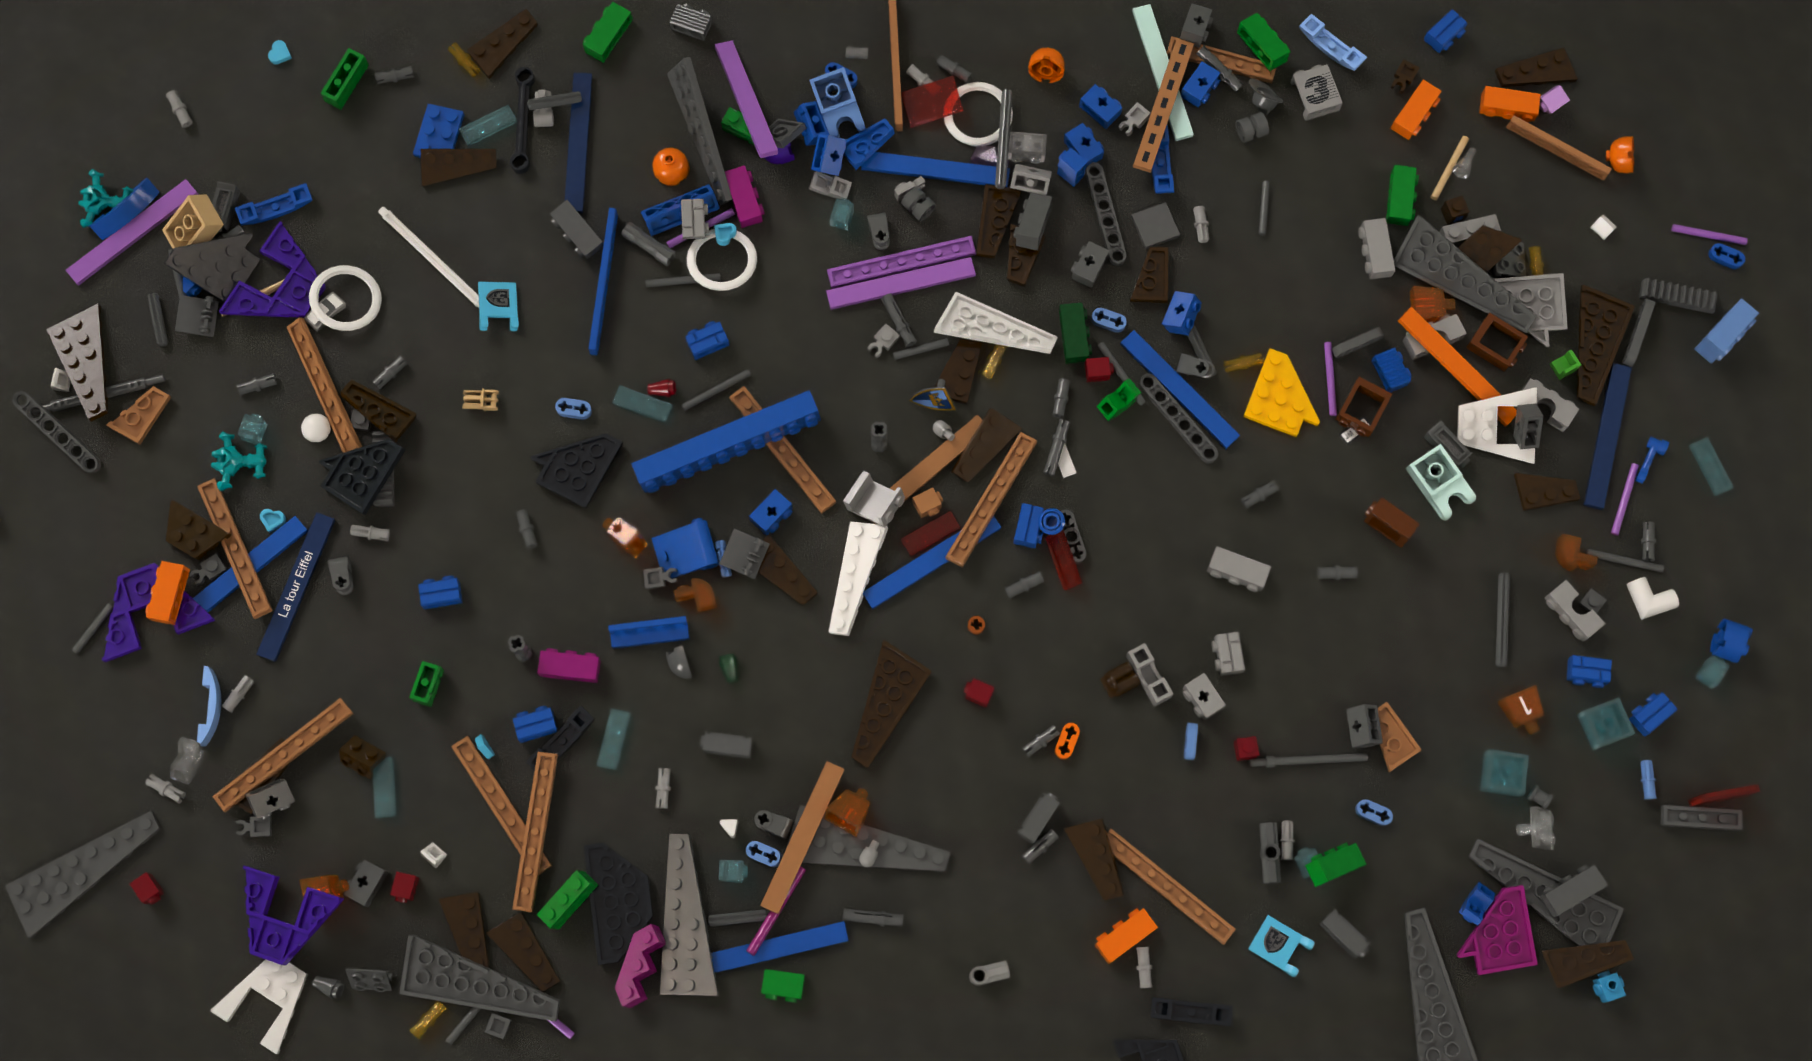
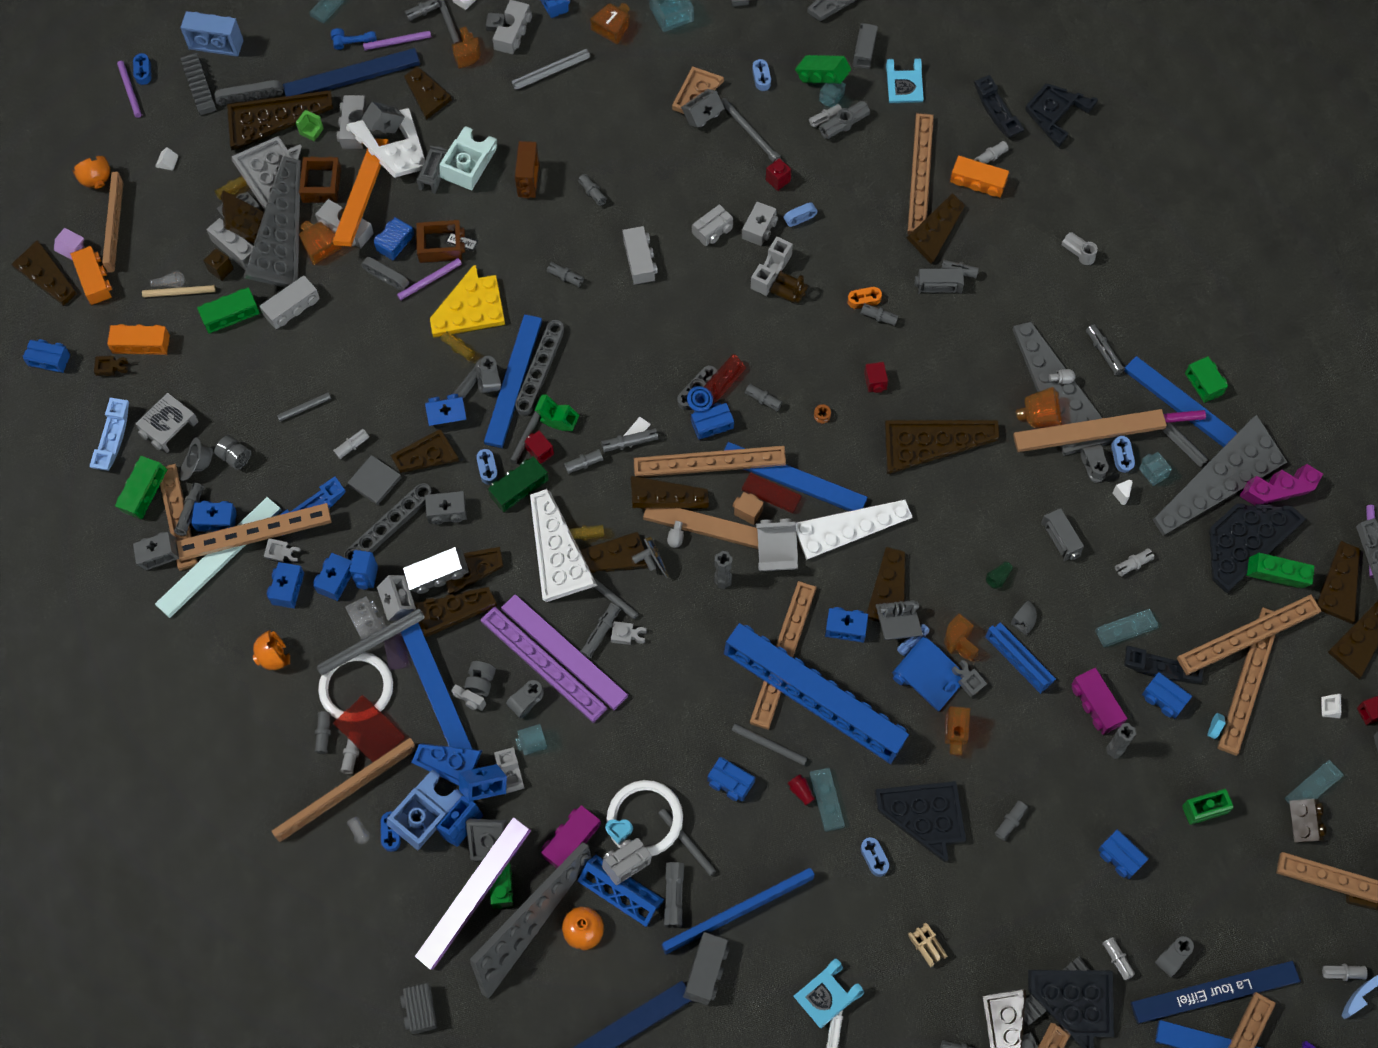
camera: 120 degrees left, 10 degrees down
(713, 221) = (605, 849): medium lavender bar -> none

